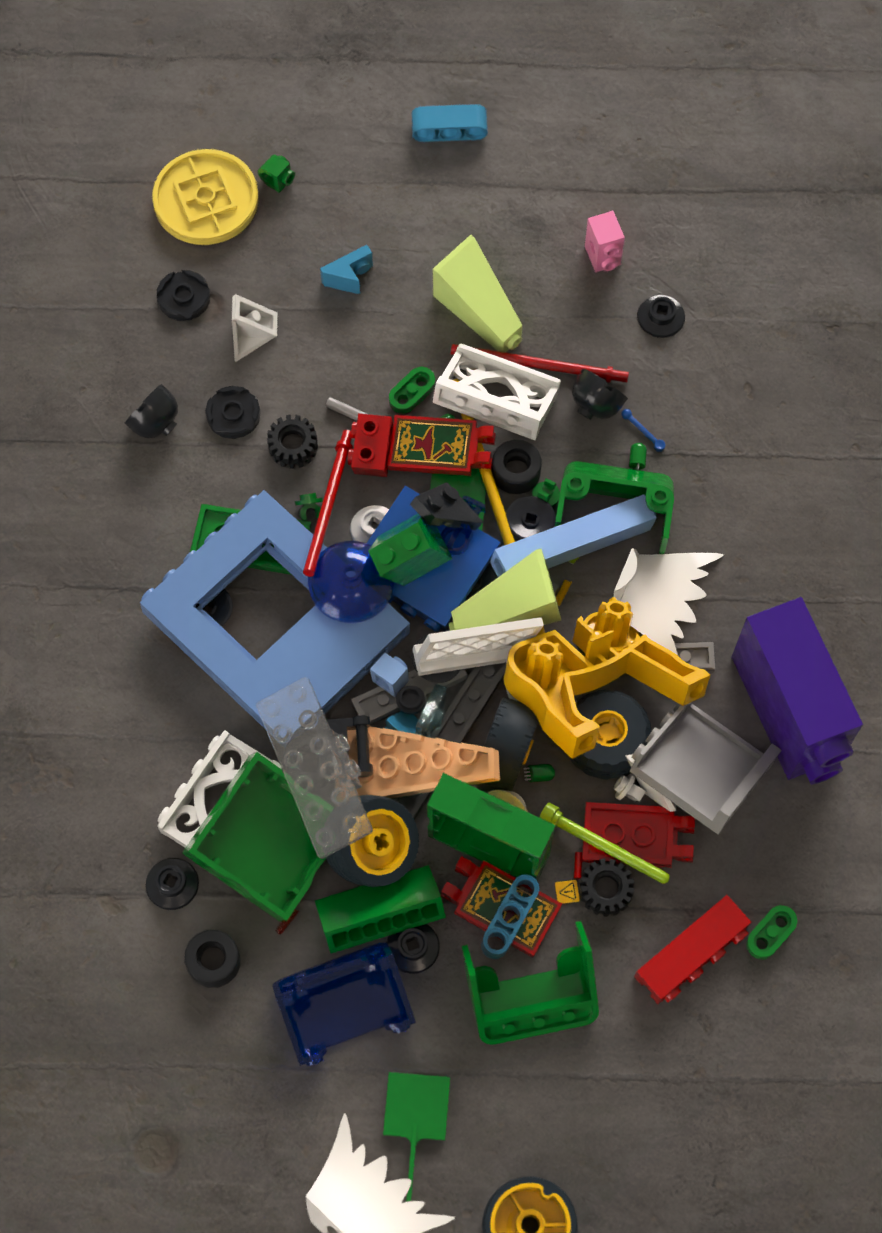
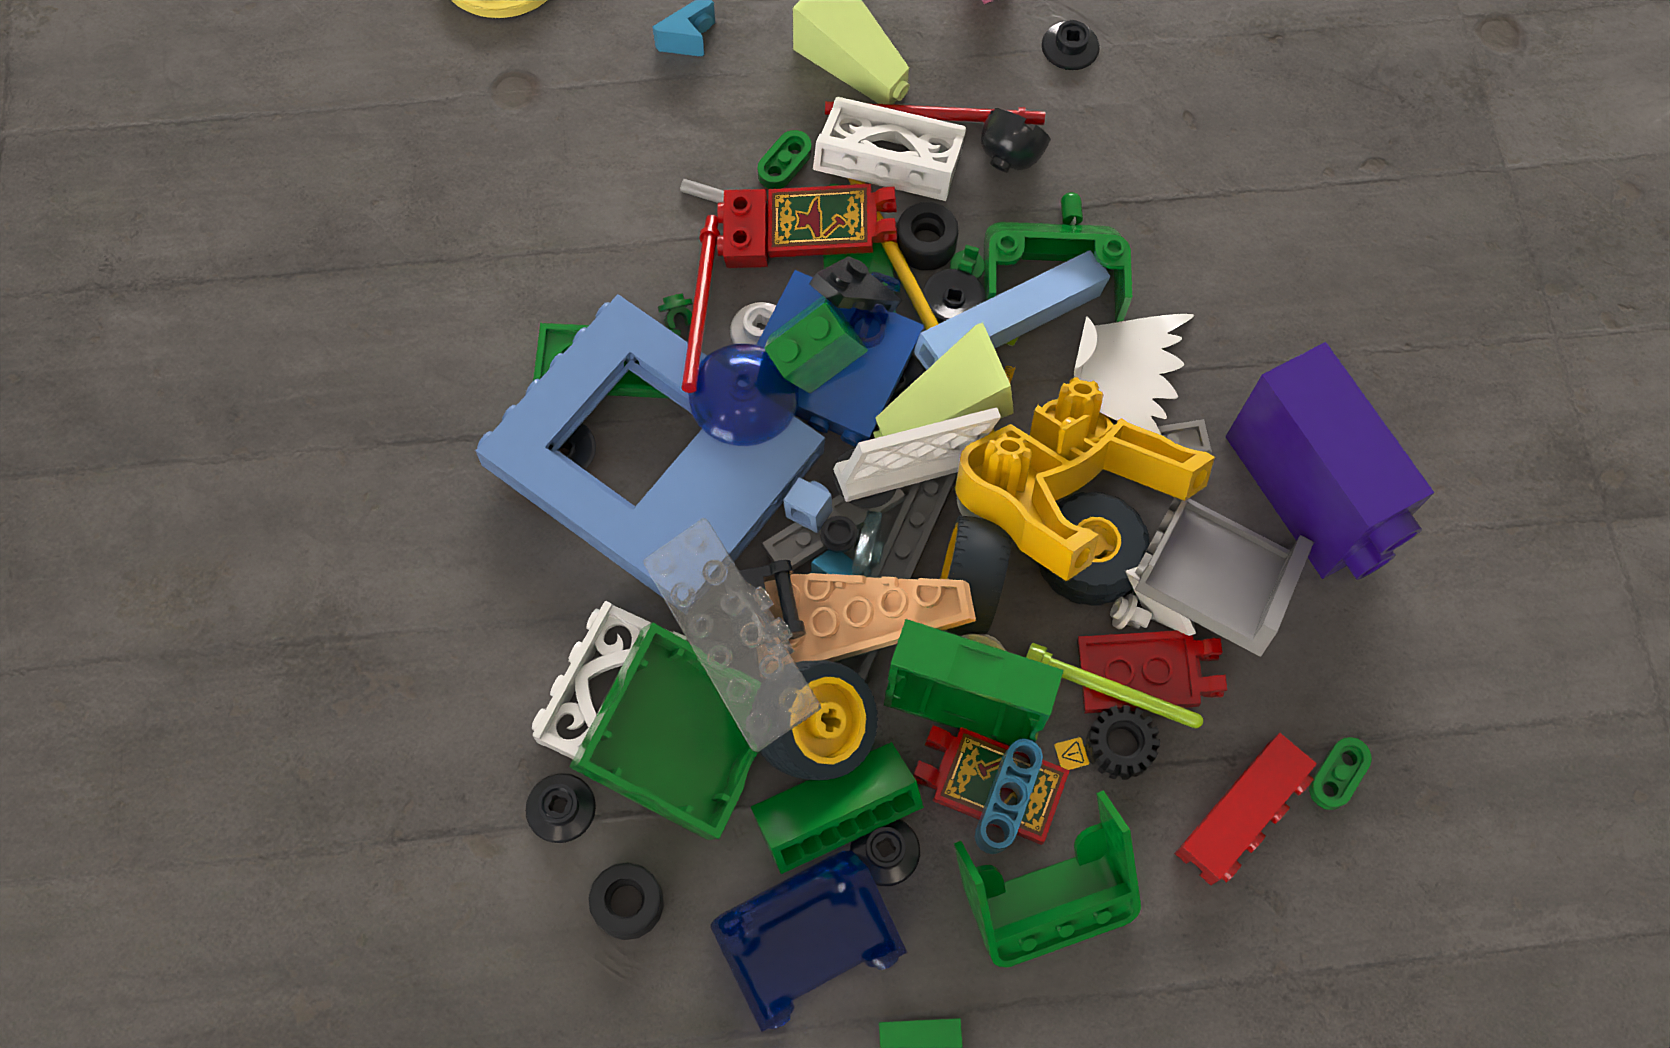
camera: 10 degrees left, 0 degrees up
(155, 414) = (467, 220): black cylinder -> none
(183, 295) = (487, 78): black tile -> none
(233, 412) = (566, 210): black tile -> none
(251, 326) = (576, 104): white slope -> none
(286, 924) = (718, 841): clear red leg -> none
(288, 427) = (640, 219): black tyre -> none
(540, 773) = (1014, 607): green piece -> none
(578, 865) = (1080, 718): red piece -> none
(659, 445) = (1094, 193): blue hinge -> none

